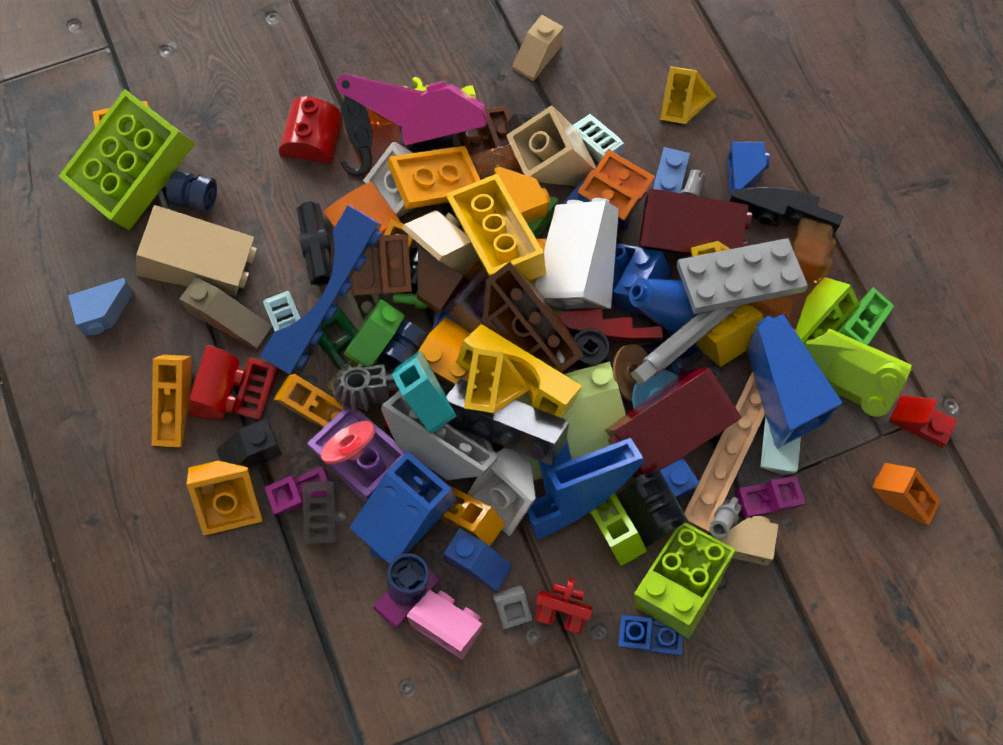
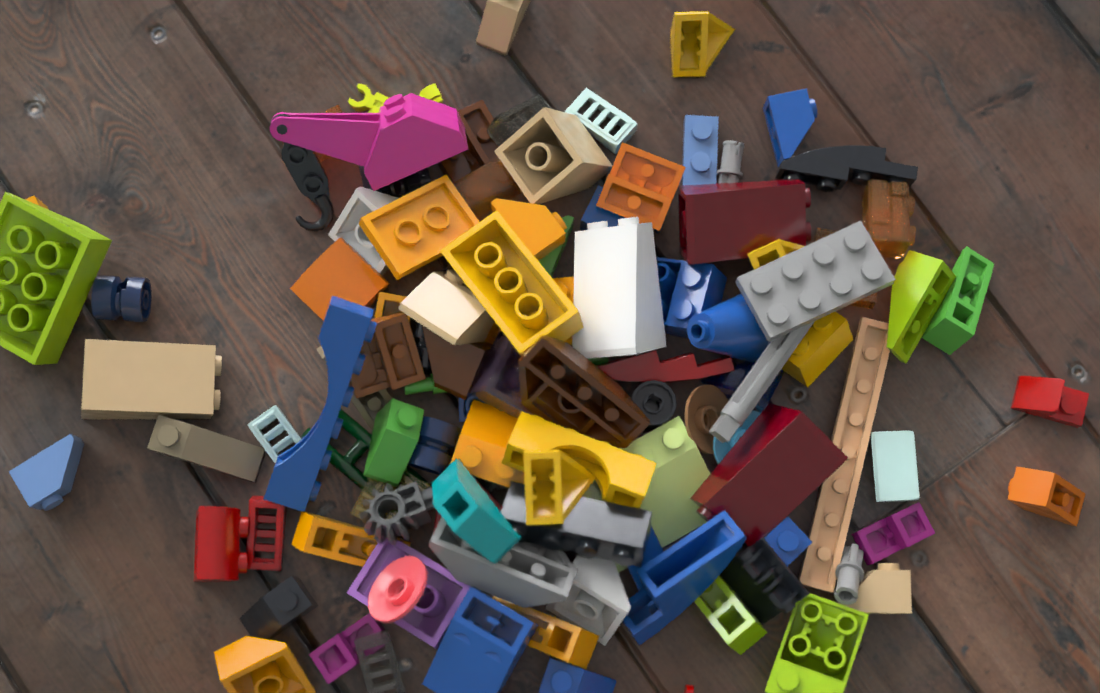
camera: 15 degrees left, 10 degrees up
(170, 399) = (168, 569): light orange slope -> none
(311, 130) = (247, 183): red brick -> none
(314, 243) = (290, 333): black piece -> none
(789, 382) = (892, 399): blue slope -> none
(859, 371) = (966, 364): lime slope -> none

